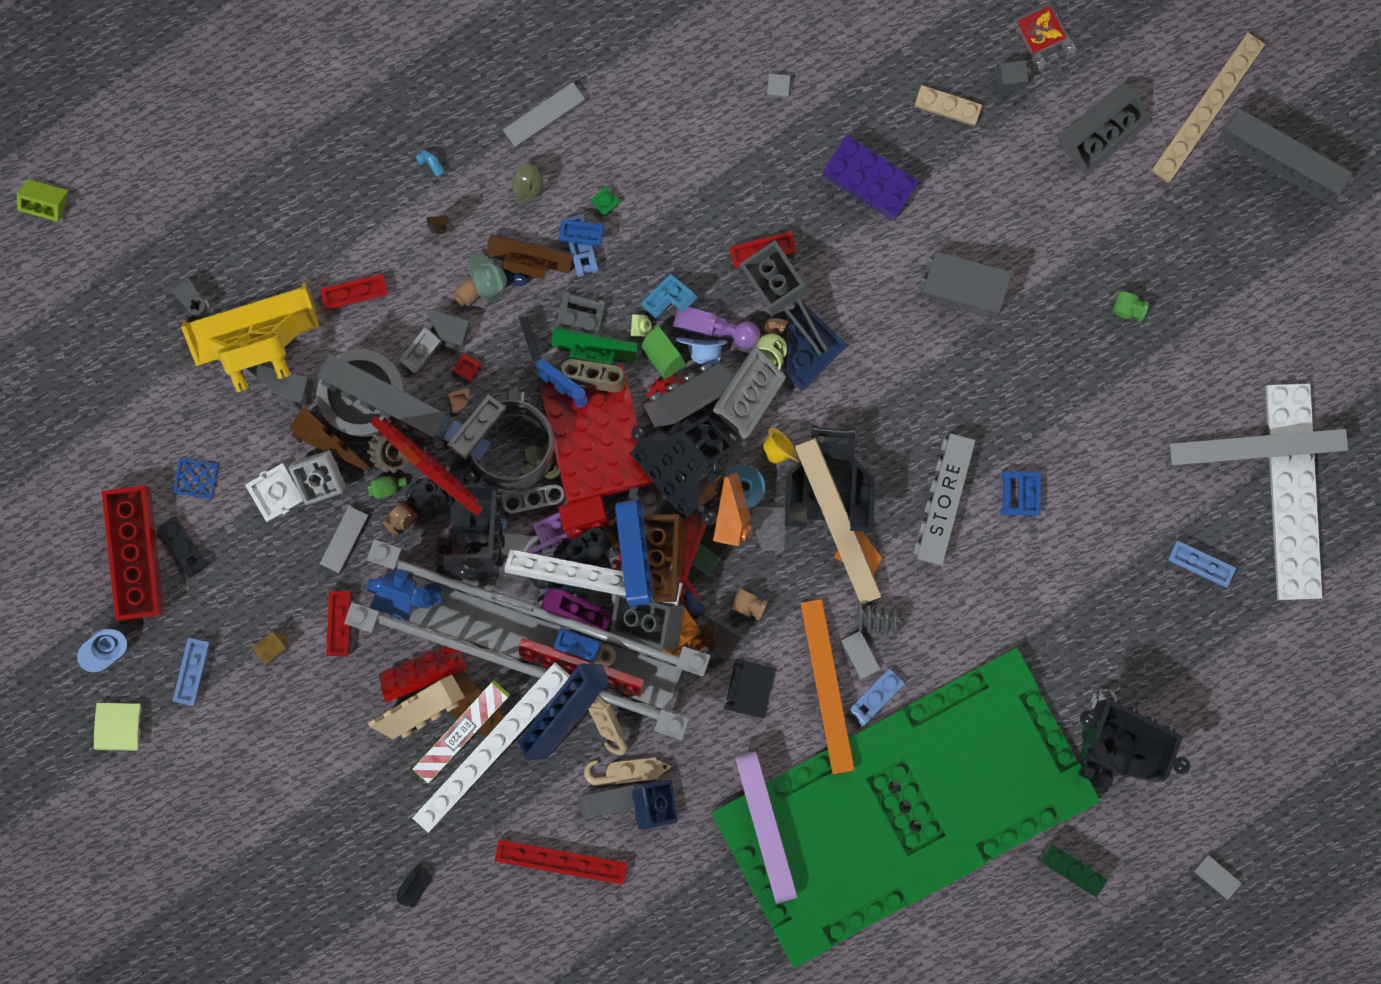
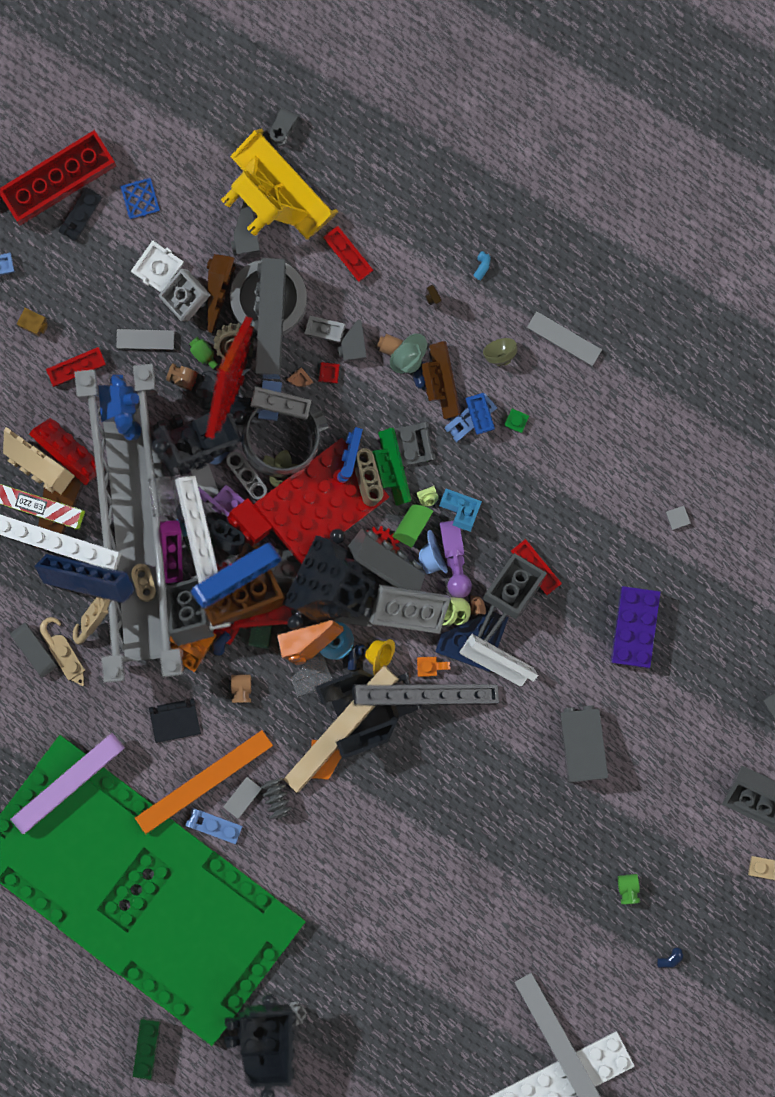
camera: 70 degrees right, 0 degrees up
(529, 336) = (375, 412): black tile -> none
(548, 656) = (126, 564): red plate -> none
(577, 645) = (144, 565): blue plate -> none
(654, 804) = (46, 686): dark blue brick -> none
(717, 638) = (202, 675): black slope -> none
(766, 471) = (355, 653): none -> dark blue arm
(813, 403) = (428, 666): none -> orange plate
(841, 330) = (498, 660): none -> white panel
(843, 419) = (425, 695): none -> plate
(945, 499) = (400, 808): light grey brick -> none
(948, 105) = (726, 664): tan plate -> none
(1028, 493) = (434, 875): blue plate -> none
(1201, 564) = (443, 1042): medium blue plate -> none
(1221, 297) = (672, 961): none -> dark blue arm

